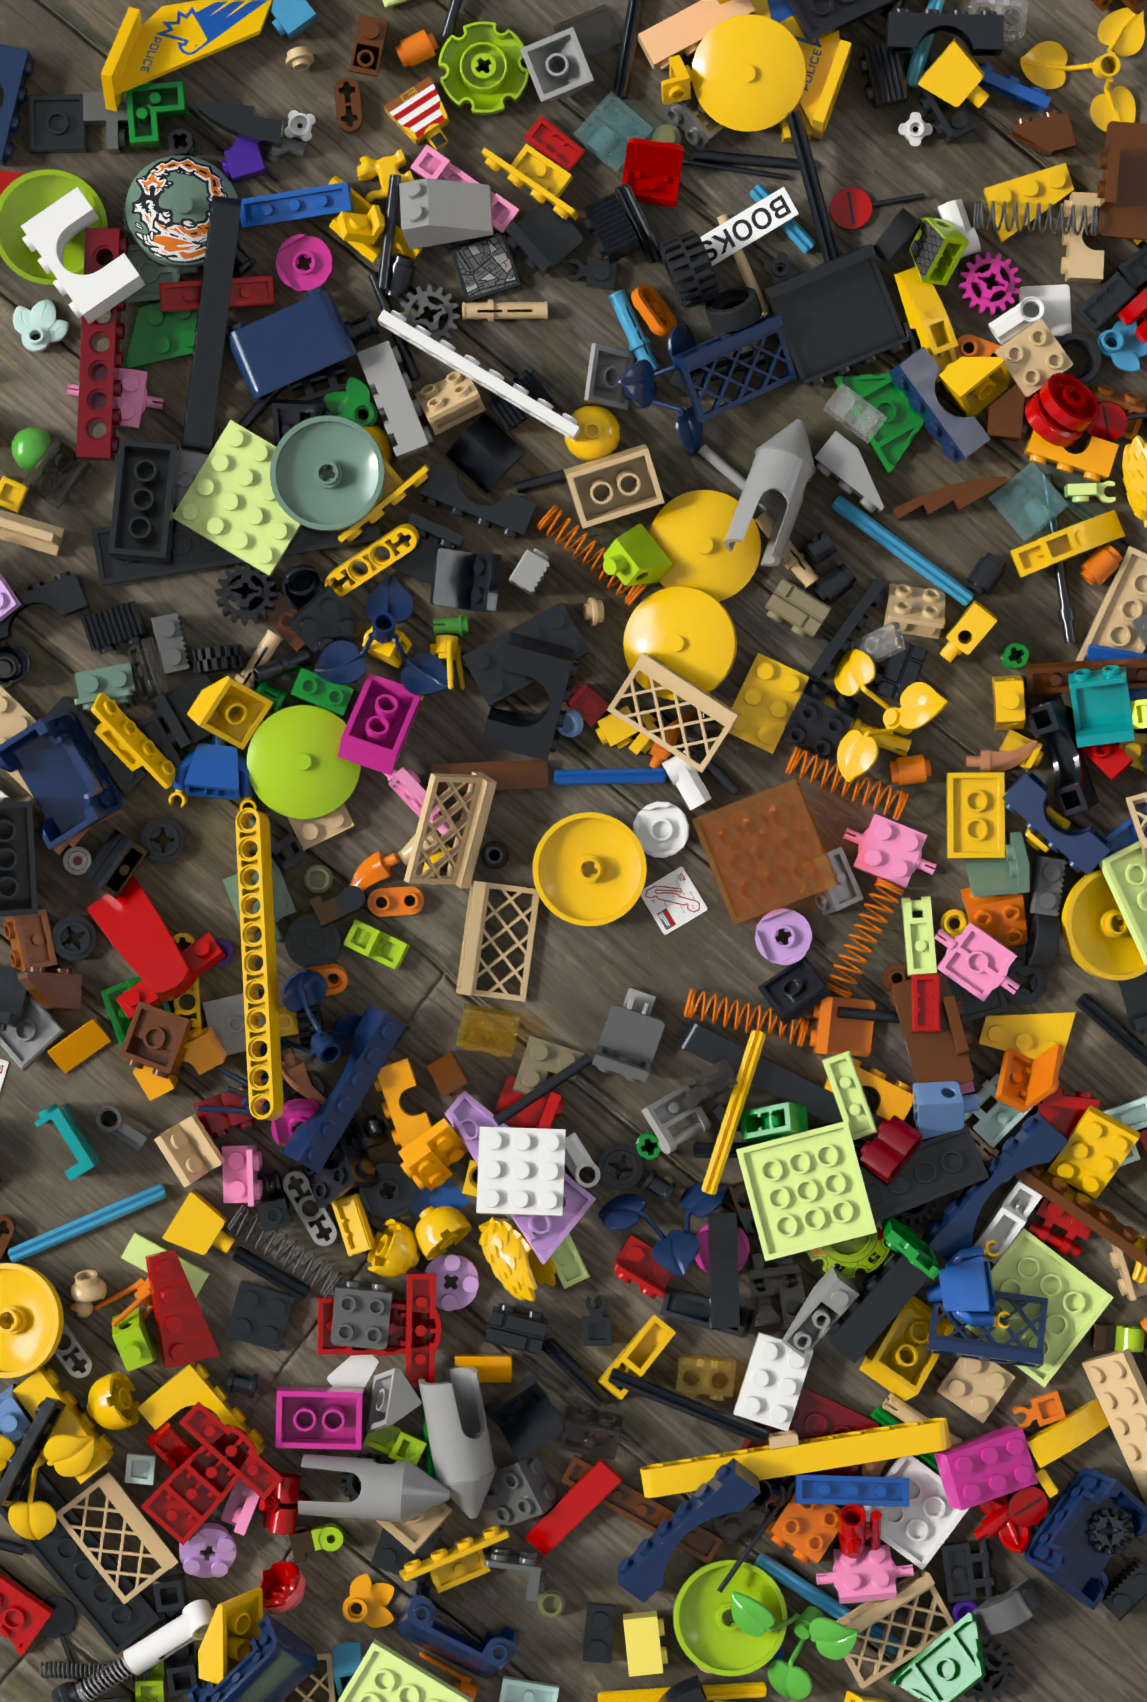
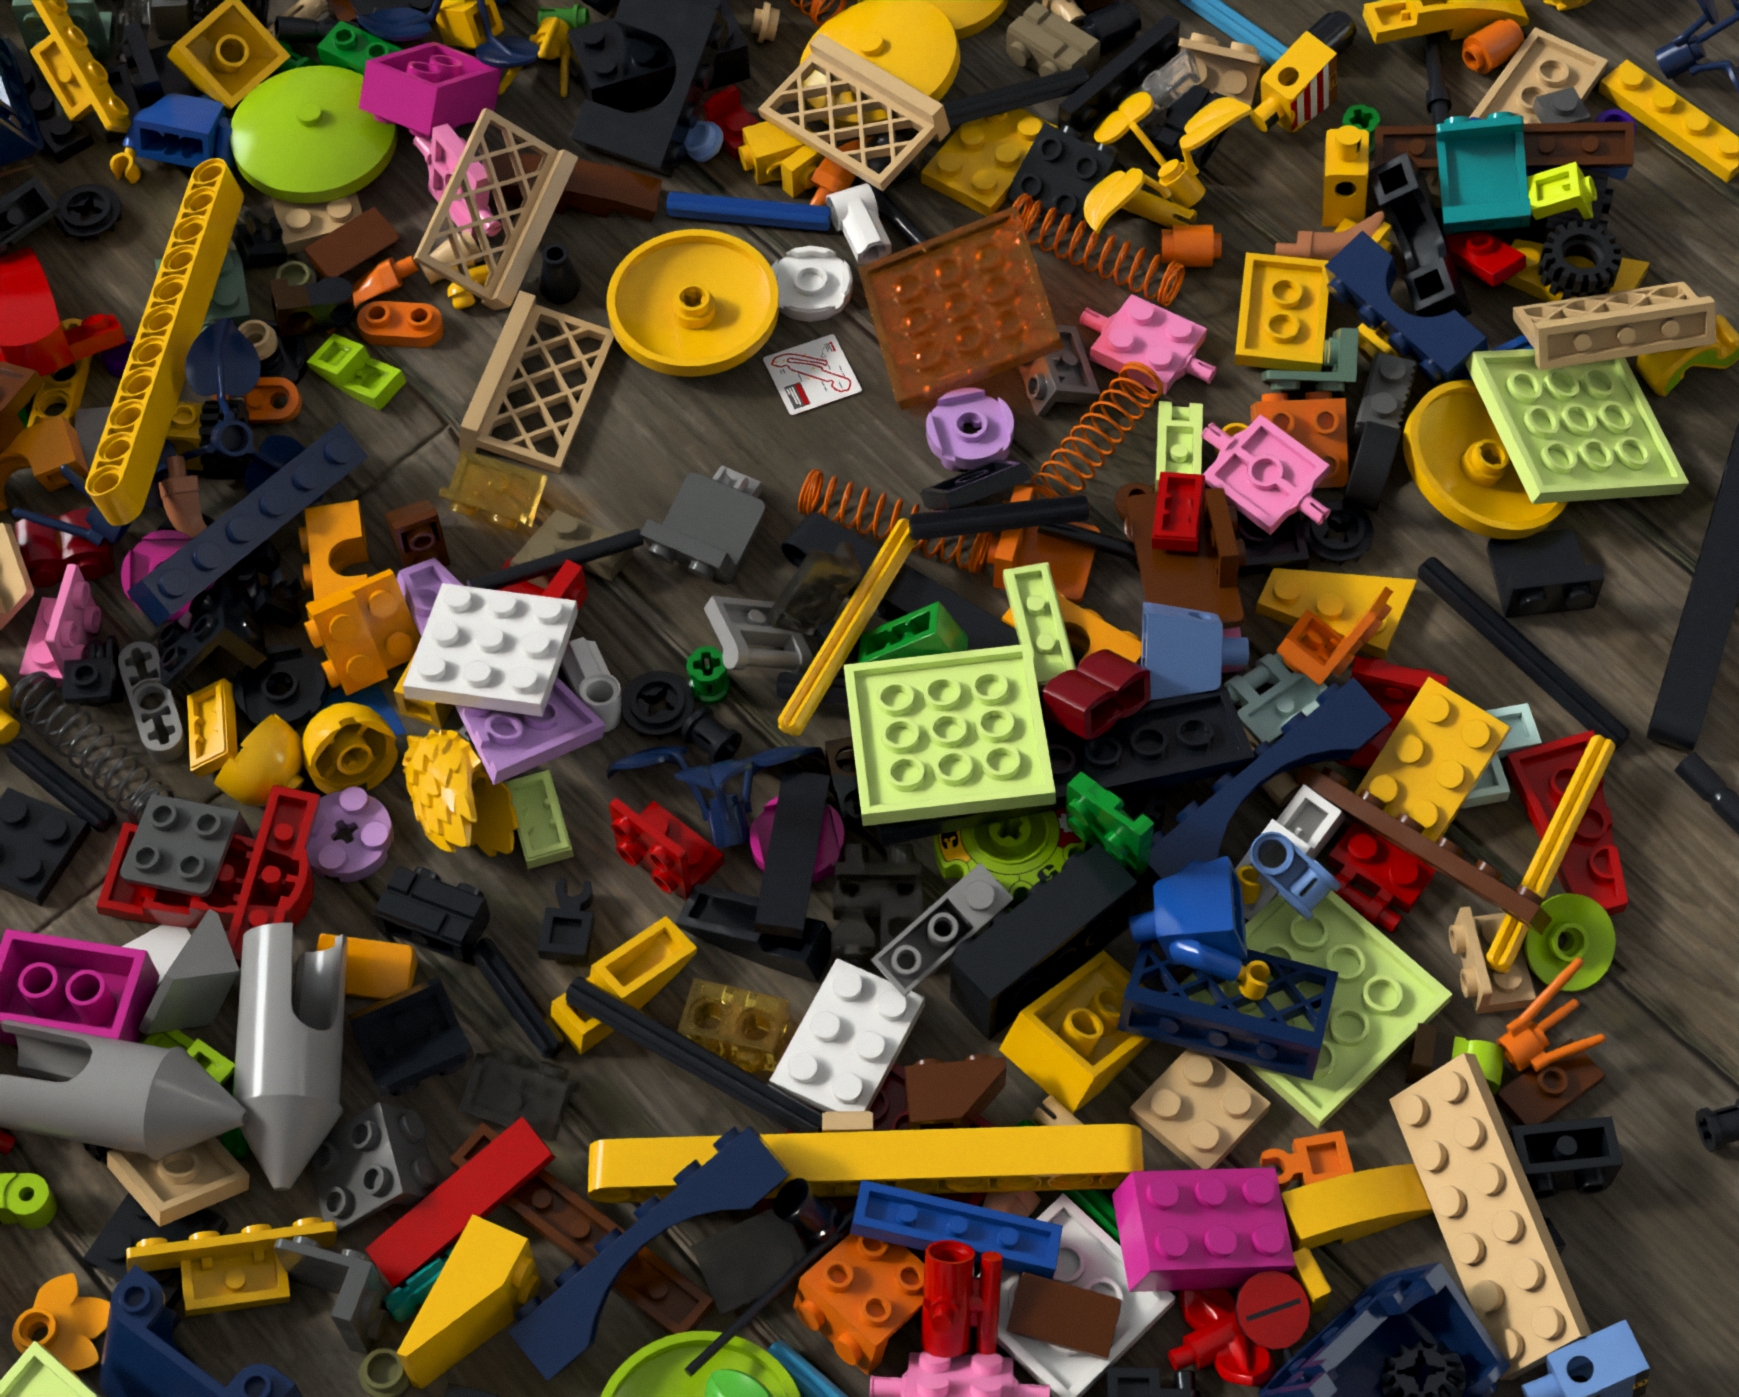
camera: 10 degrees right, 30 degrees down
(298, 939) = (262, 333): none -> tan plate
(351, 847) = (352, 244): none -> reddish brown slope
(563, 1548) = (402, 1301): none -> teal axle
(596, 1561) = (471, 1301): none -> yellow slope
(776, 666) = (1015, 96): none -> black axle
(815, 1028) = (998, 517): none -> black axle
(837, 1411) = (952, 1092): none -> reddish brown slope
(915, 1526) = (1064, 1315): none -> reddish brown slope
(1020, 1248) = (1294, 875): none -> medium blue piece

